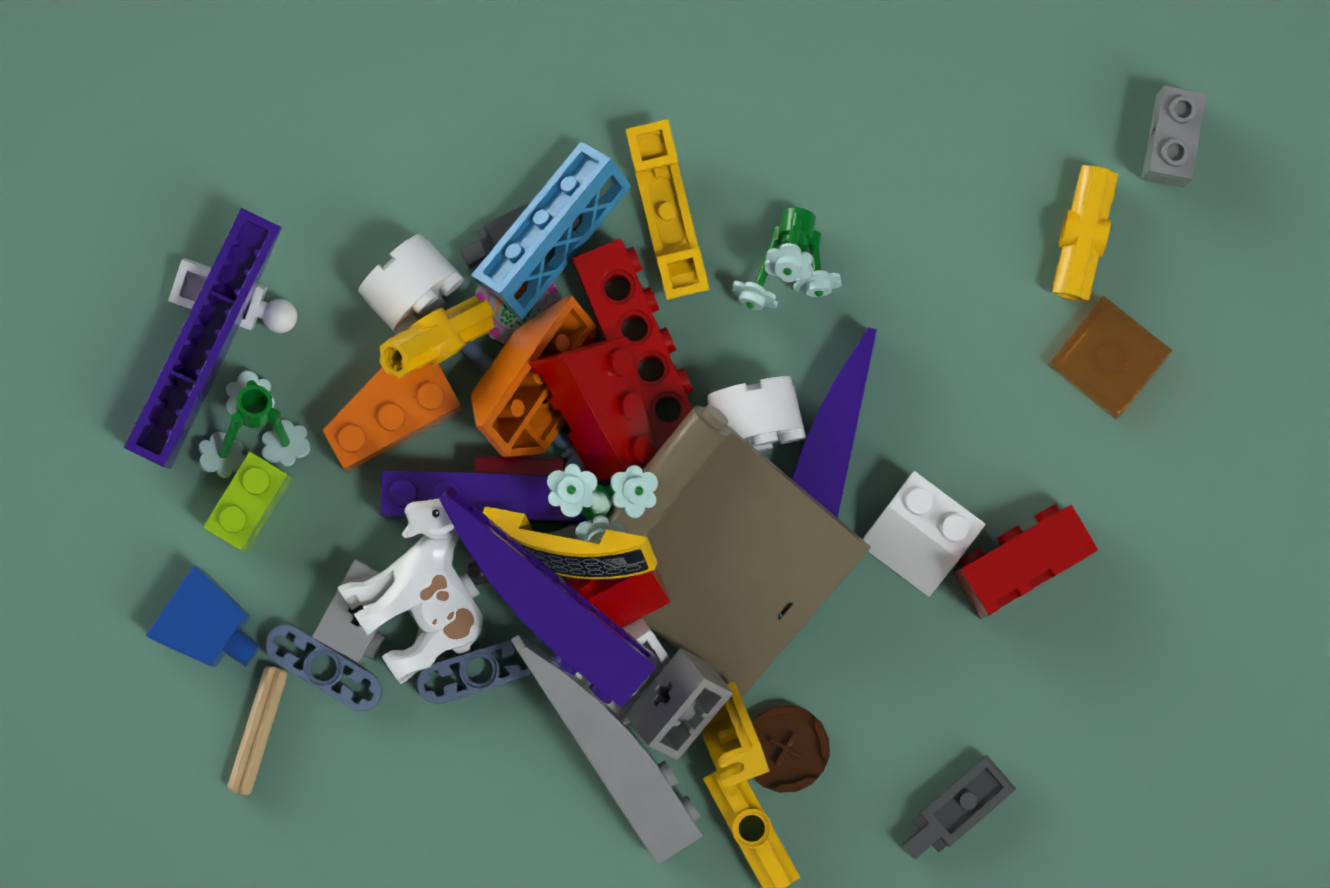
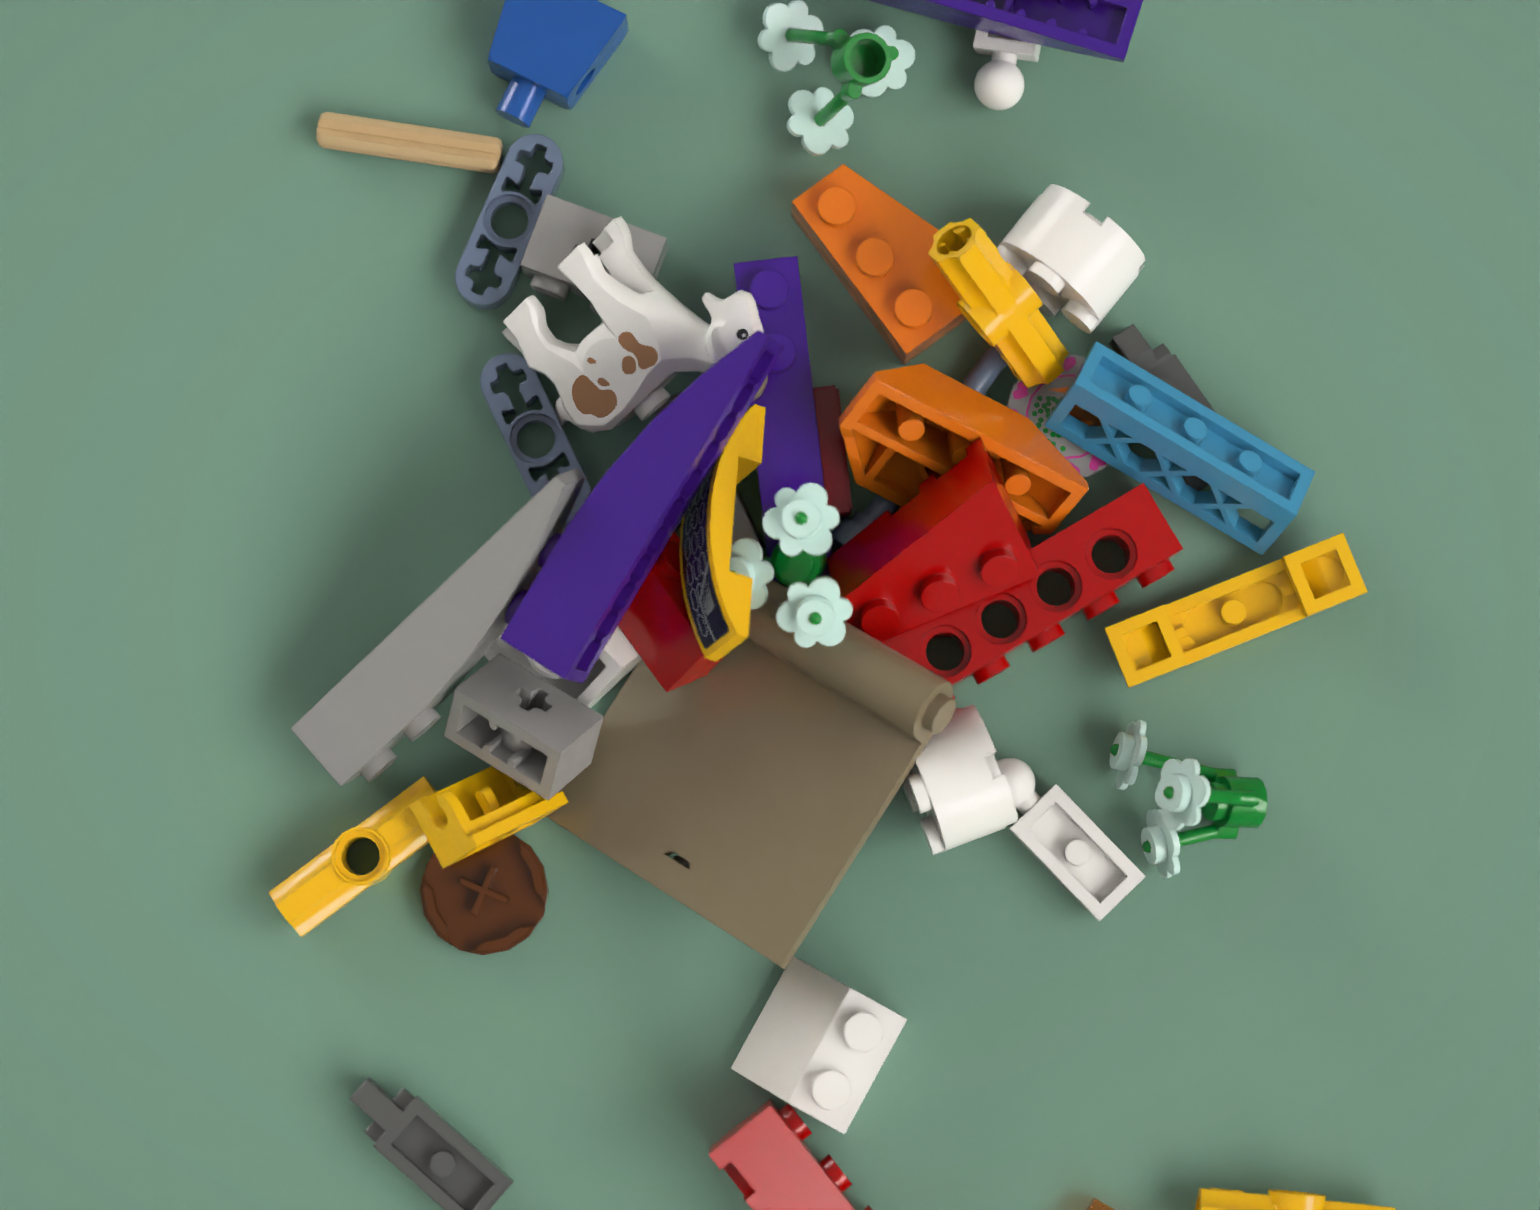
camera: 85 degrees right, 0 degrees up
(248, 502) = (726, 79): lime brick -> none
(809, 345) = (1069, 843): none -> white plate
(829, 444) = (927, 890): dark purple slope -> none

